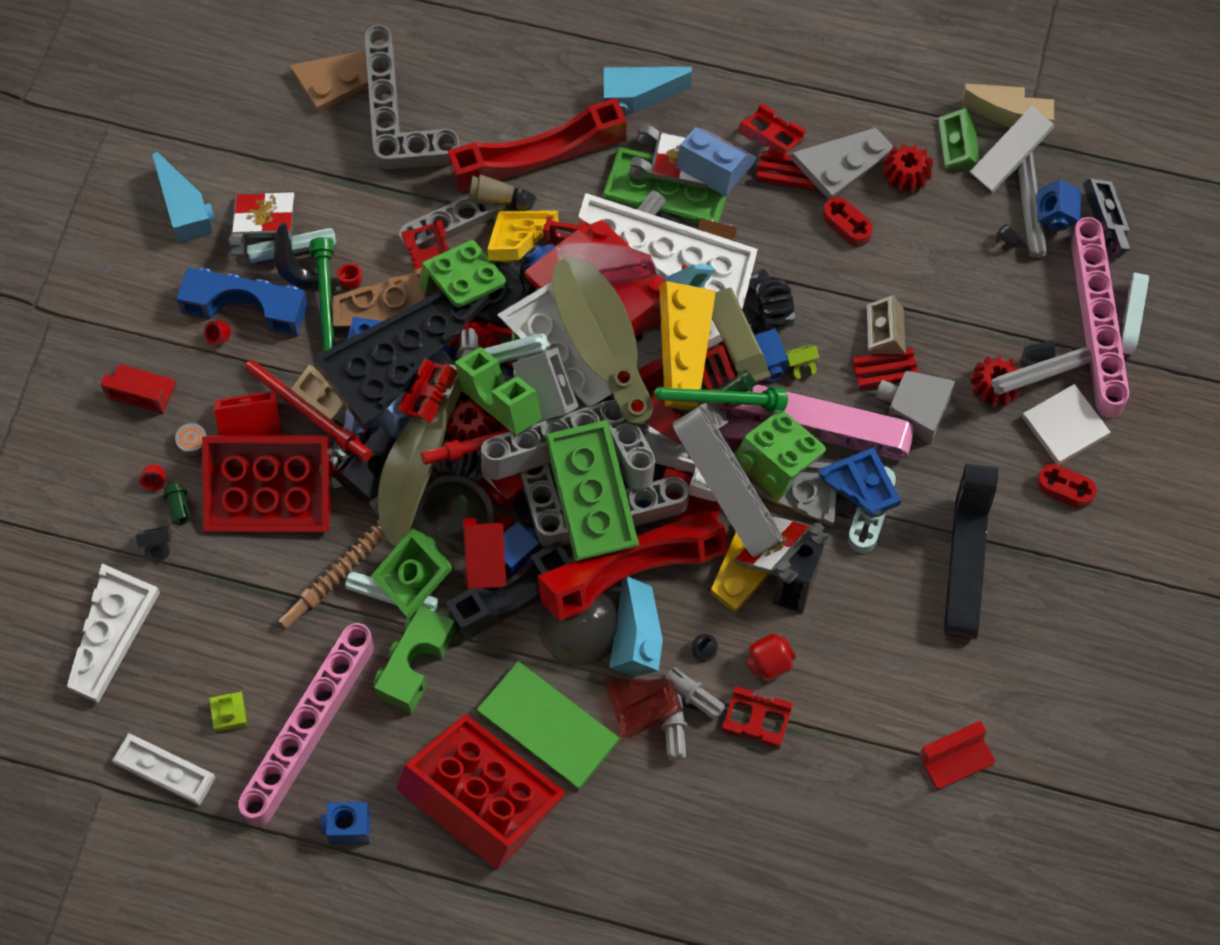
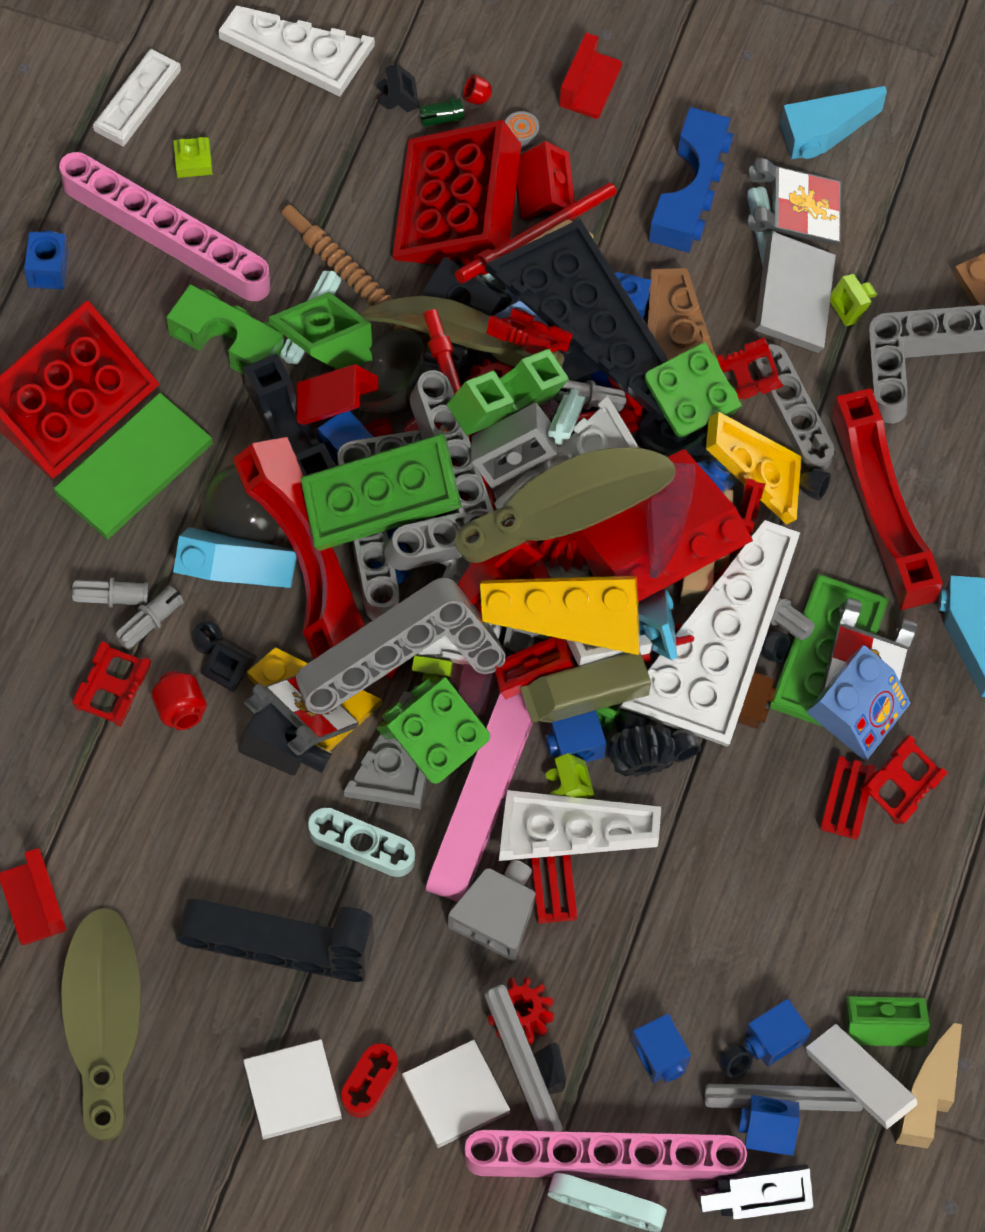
camera: 90 degrees right, 0 degrees up
(217, 332) = (652, 156): red hinge -> none
(286, 263) = (729, 229): black piece -> none
(321, 250) = (746, 259): green piece -> none
(349, 218) = (795, 292): none -> light grey tile
(350, 276) = (723, 290): red hinge -> none
(354, 178) = (851, 299): none -> lime tile
(488, 190) = (820, 437): dark tan cone -> none
(642, 703) = (142, 556): clear red wing -> none
(727, 626) = (228, 664): none -> black slope
(741, 383) = (517, 681): dark green pin -> none
(772, 399) = (500, 721): green piece -> none
(842, 161) = (855, 863): light grey wing -> none
(842, 363) = (564, 825): none -> white wing
(850, 219) = (762, 855): red beam -> none
(862, 482) = (388, 825): blue wing -> none
(886, 326) = (609, 888): dark tan slope -> none
(908, 167) = (855, 950): red gear -> none
(985, 207) = (776, 1033): none -> blue brick
(1010, 283) = (661, 1049): none -> blue brick
(1046, 686) = (102, 1014): none -> olive plant
(1082, 541) = (292, 1089): none -> white tile

